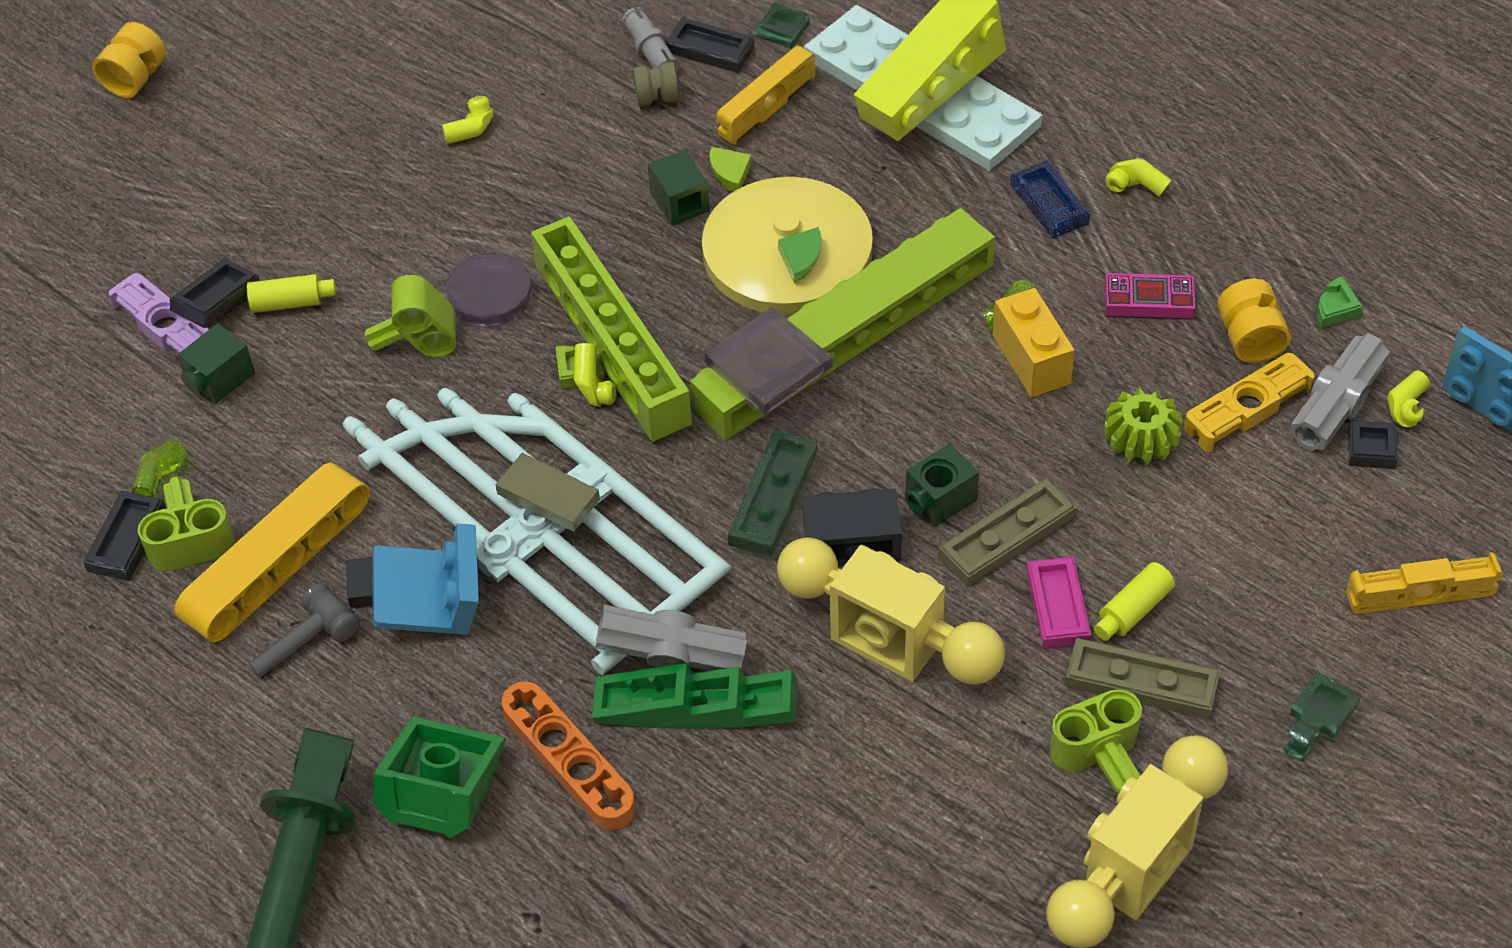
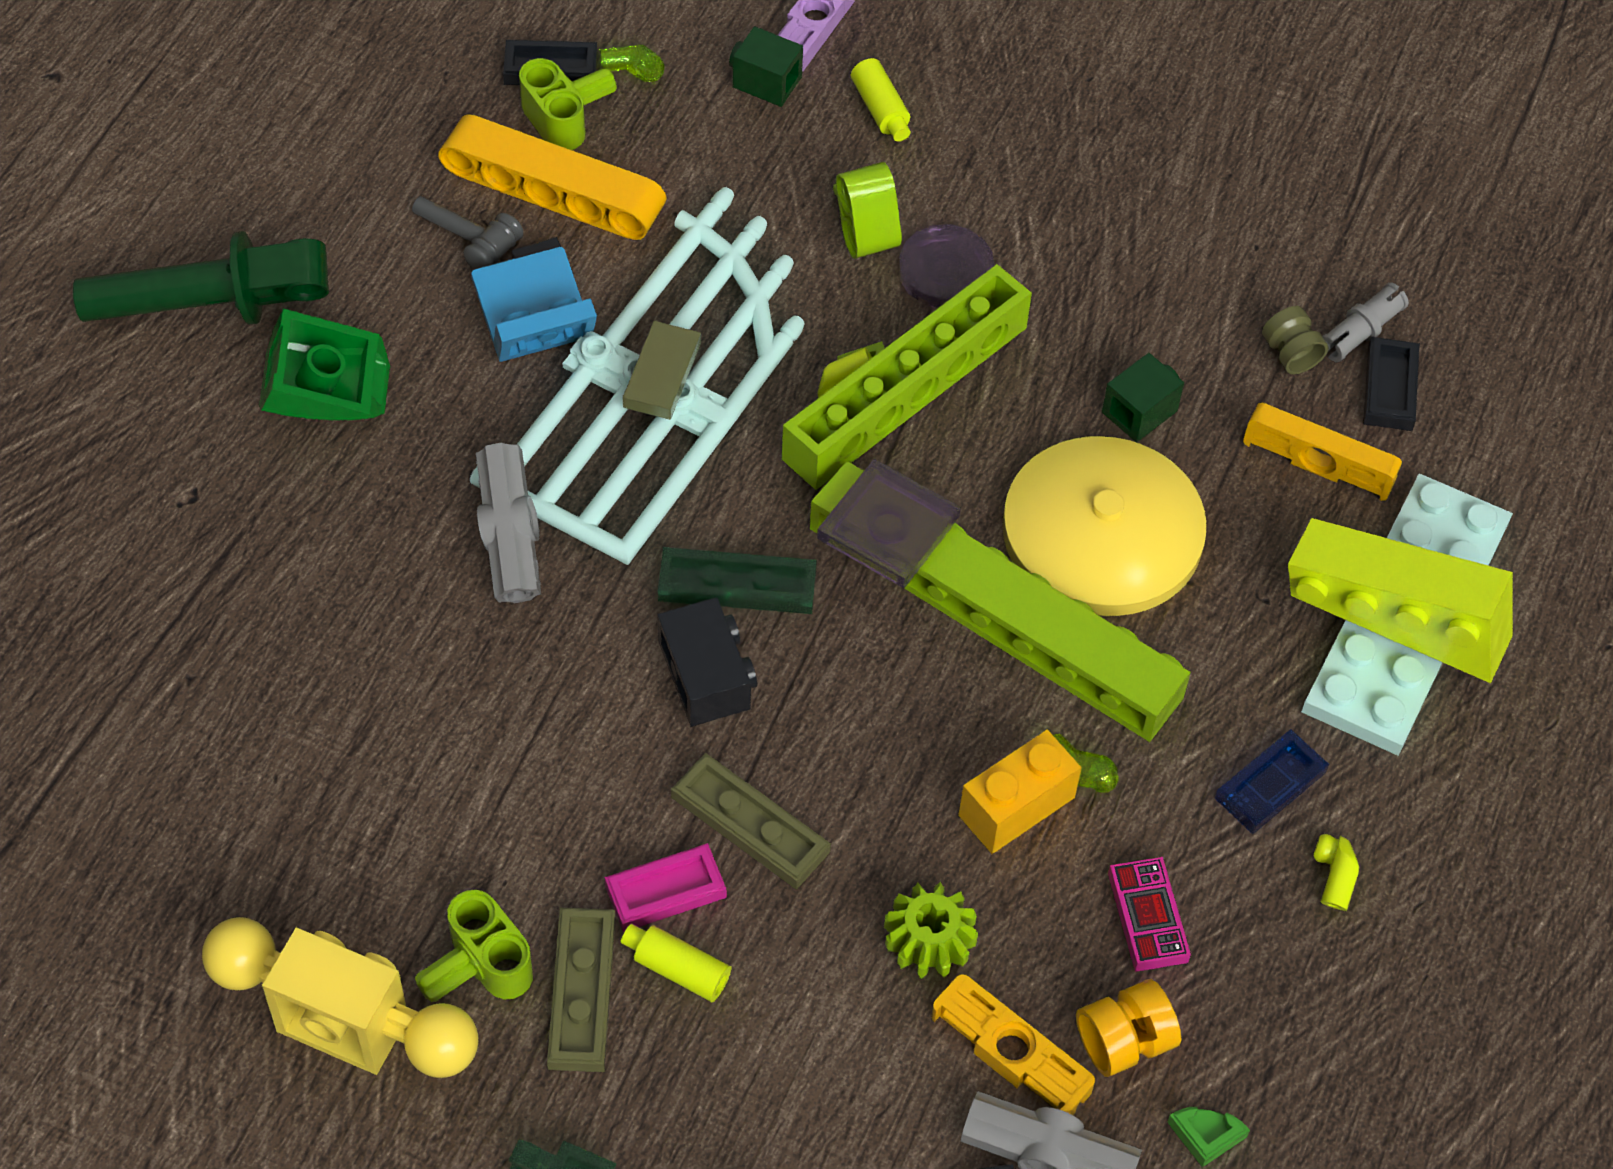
camera: 70 degrees right, 5 degrees up
(213, 293) = (859, 37): black tile -> none
(473, 124) = (1176, 193): neon yellow arm -> none
(571, 752) = (366, 473): orange beam -> none
(690, 700) = (457, 570): green slope -> none
(730, 167) = (1200, 444): lime tile -> none
(782, 25) = (1453, 448): clear green tile -> none
(800, 252) = (1068, 527): bright green tile -> none
(889, 612) = (581, 709): light yellow brick -> none
(941, 485) = (785, 756): dark green brick -> none

